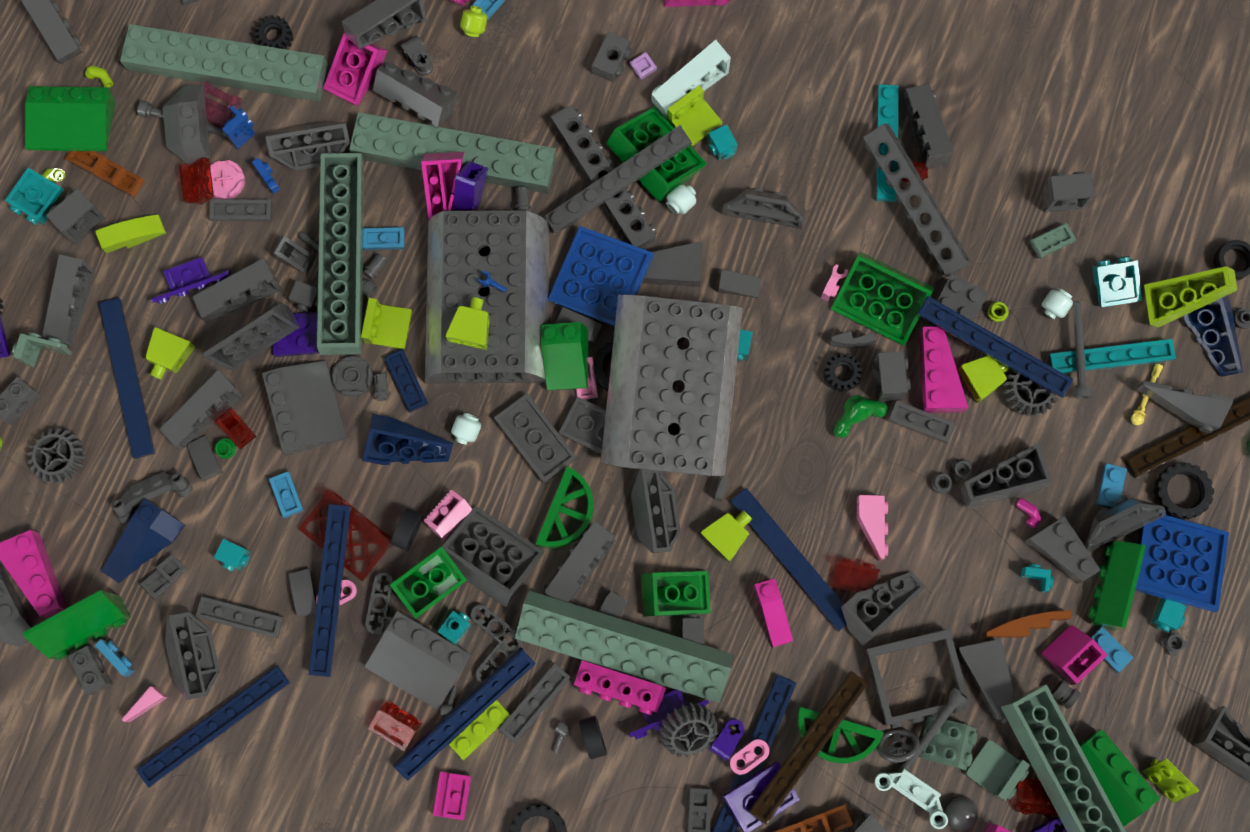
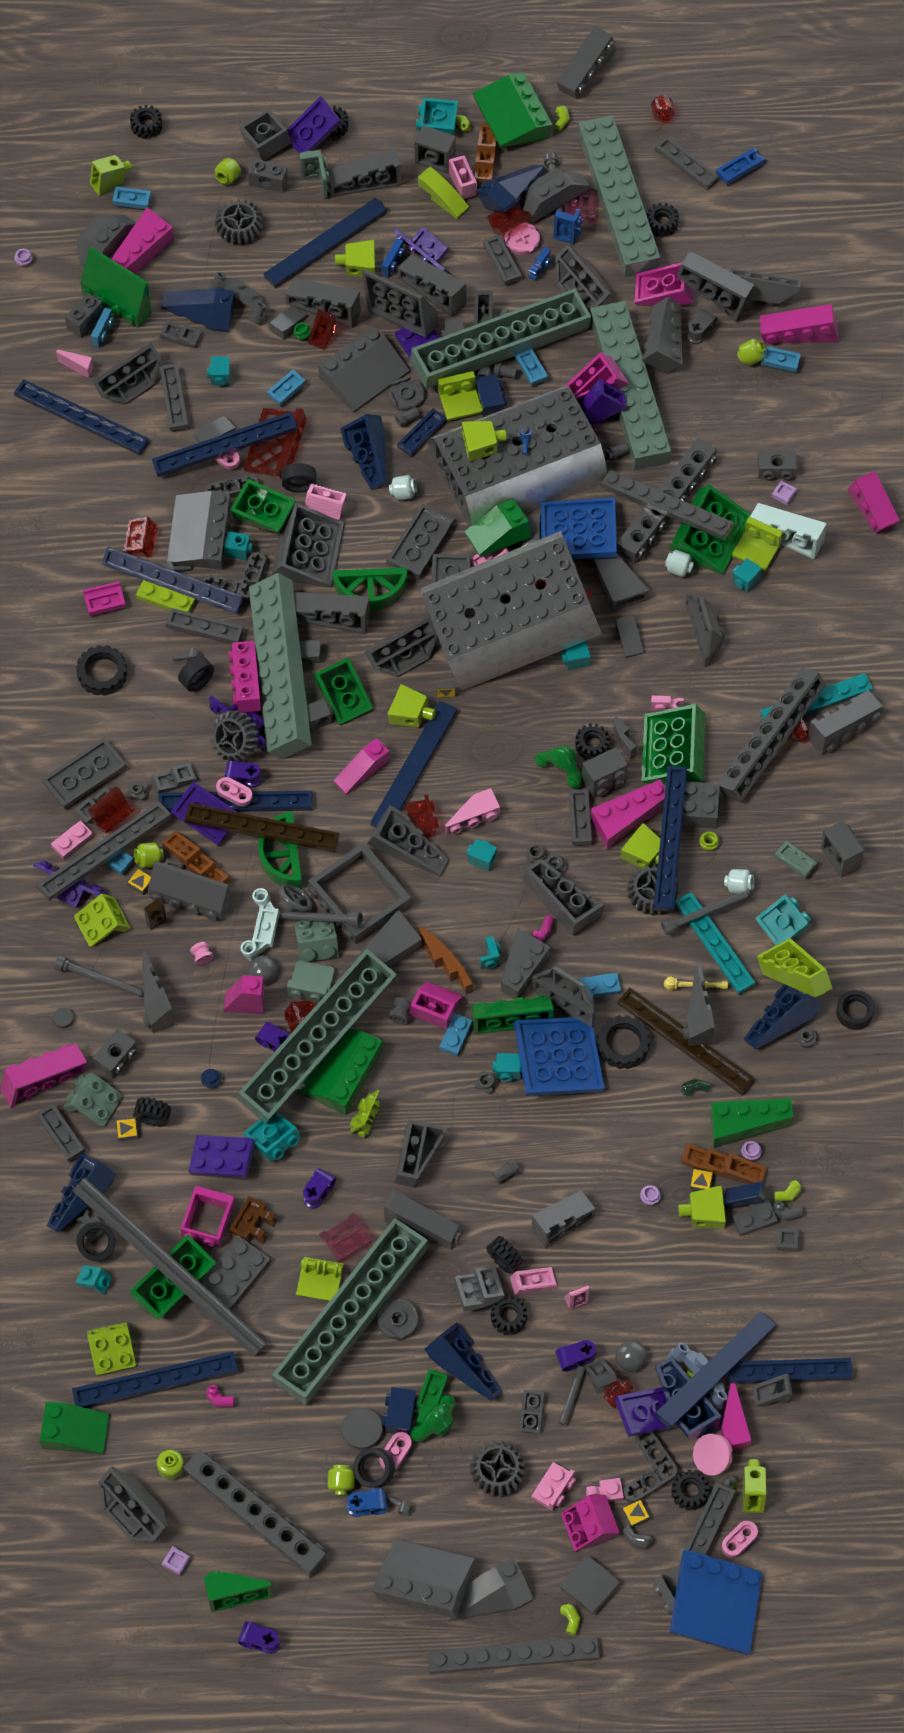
camera: 65 degrees right, 15 degrees down
(123, 204) = (462, 177): none -> bright pink brick
(161, 168) = (505, 190): none -> dark blue wedge
(179, 311) = (390, 262): none -> blue plate
(398, 293) = (490, 394): none -> dark blue brick
(923, 536) = (481, 854): none -> teal brick

